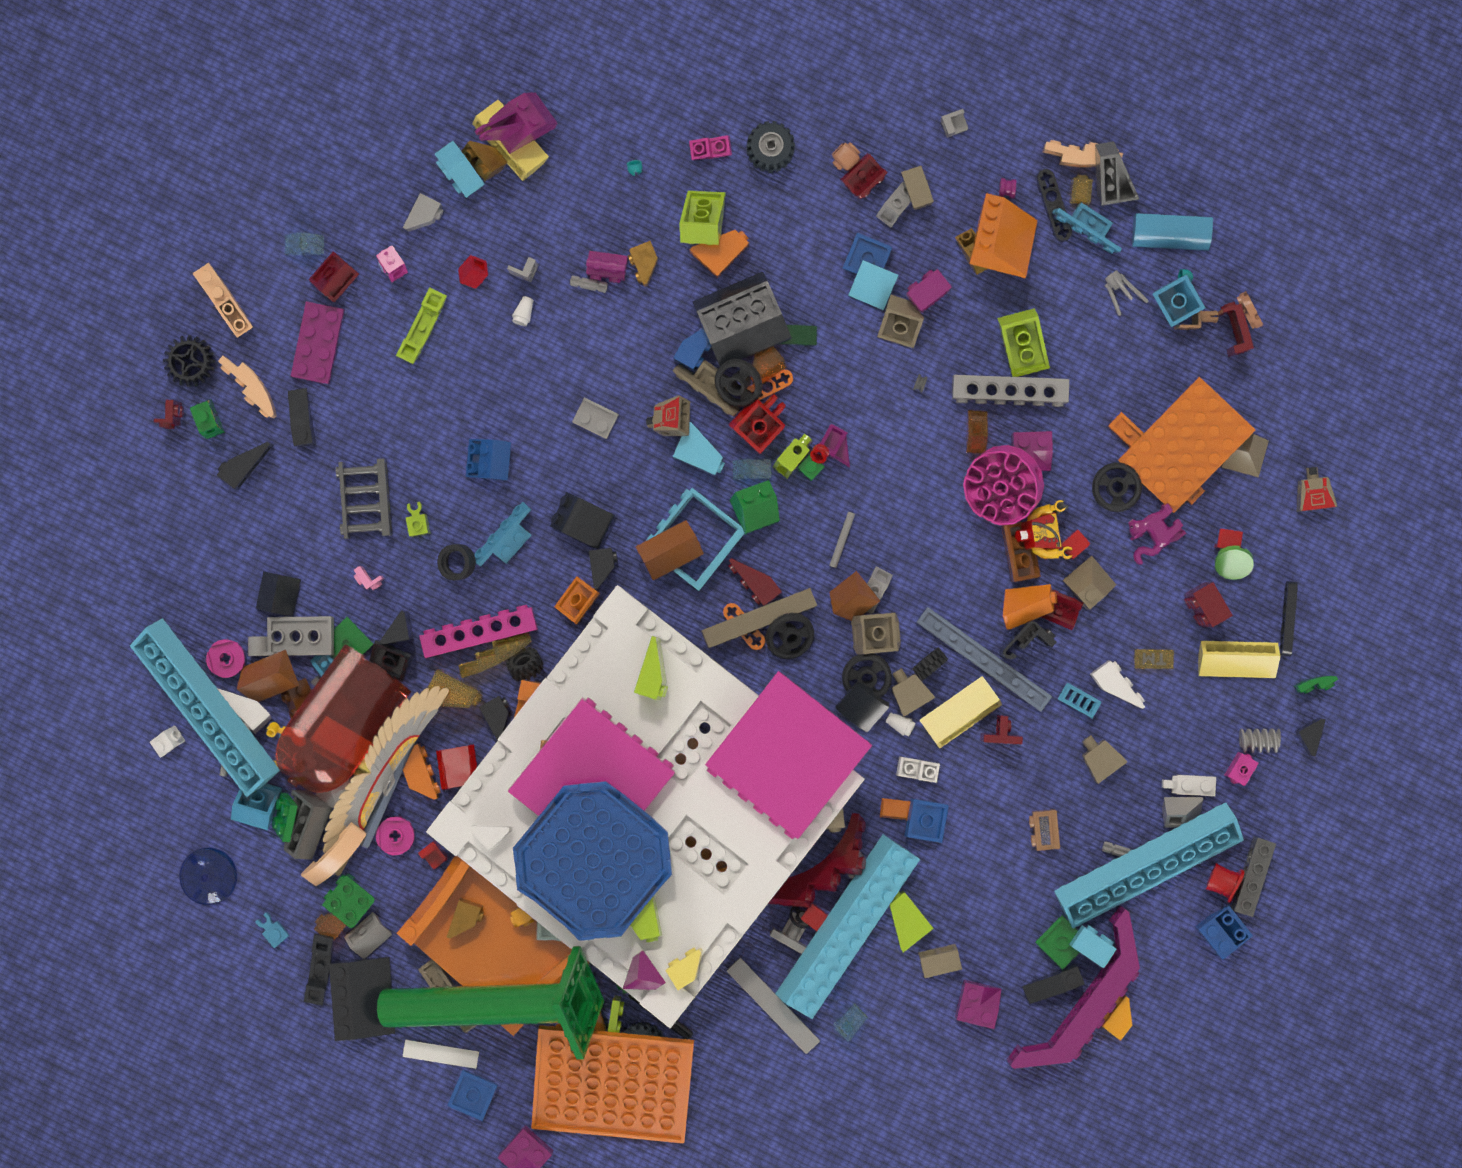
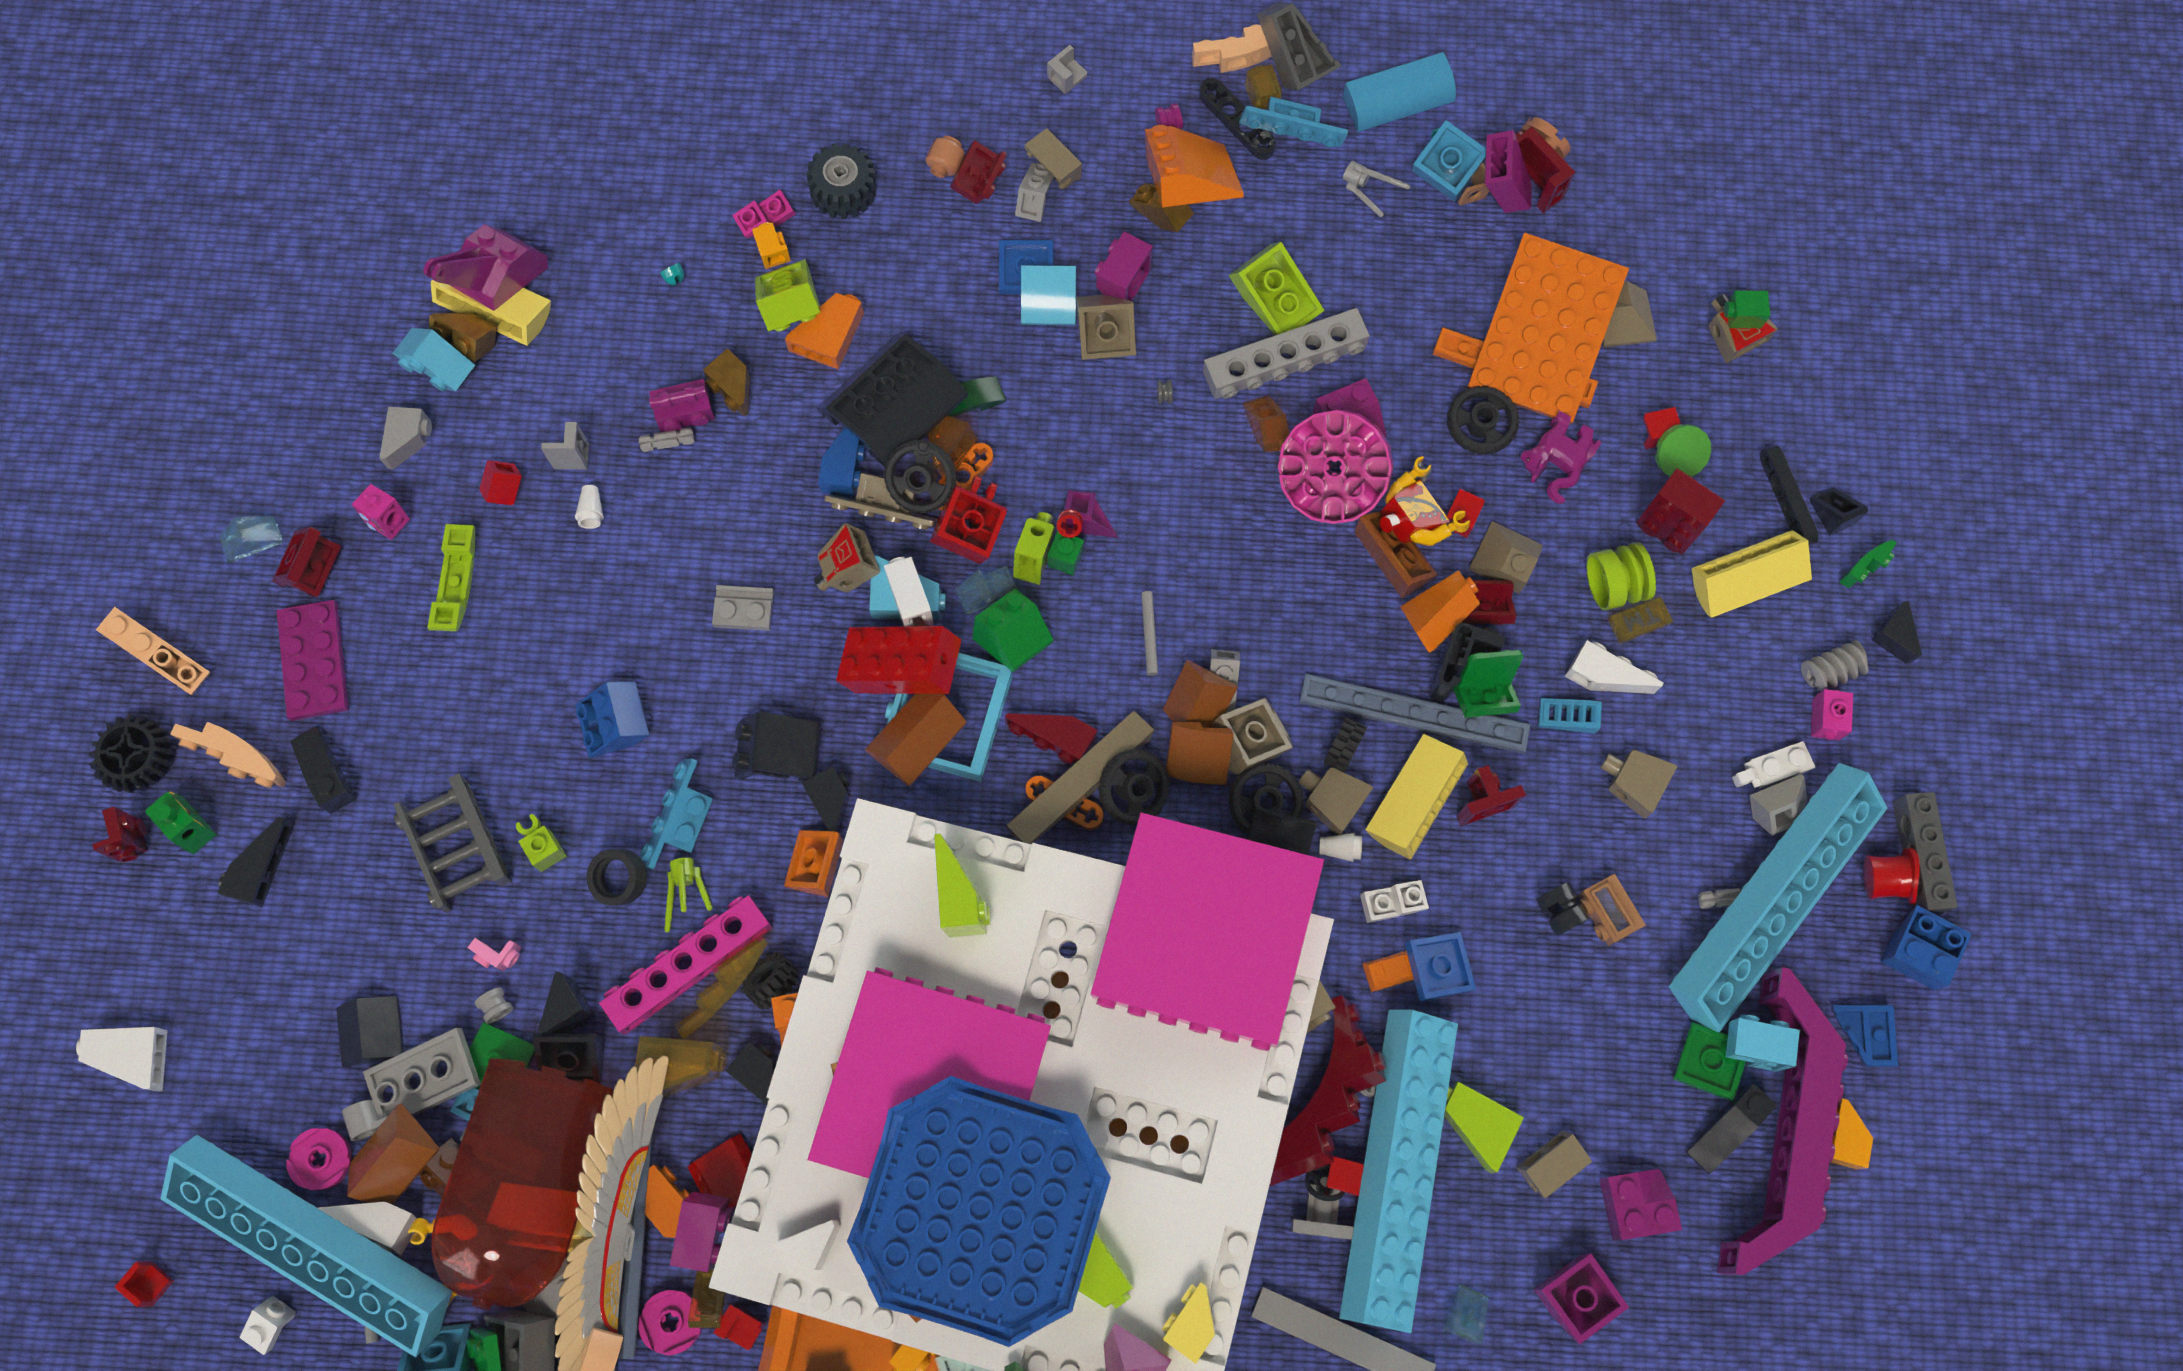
camera: 25 degrees left, 15 degrees down
(105, 690) = (144, 1284): none -> red panel
(133, 550) = (126, 1053): none -> white slope
(356, 609) = (493, 1005): none -> light grey wheel
(418, 837) = (706, 1303): none -> clear yellow tile
(434, 792) = (698, 1231): none -> magenta slope
(495, 575) = (682, 875): none -> lime plant
(677, 499) = (899, 660): none -> red brick
(700, 459) = (908, 592): none -> white slope
(706, 173) = (771, 245): none -> light orange brick
(838, 632) = (1199, 753): none -> dark orange slope
(918, 1040) = (1581, 1297): none -> magenta slope
(1016, 817) = (1562, 920): none -> black wheel
(1035, 664) = (1488, 684): none -> green bracket
(1148, 628) = (1621, 576): none -> lime wheel
(1165, 965) = (1870, 1032): none -> blue wing
(1211, 326) = (1507, 173): none -> magenta slope
(1314, 639) = (1837, 510): none -> black slope
(1321, 487) = (1747, 309): none -> green brick

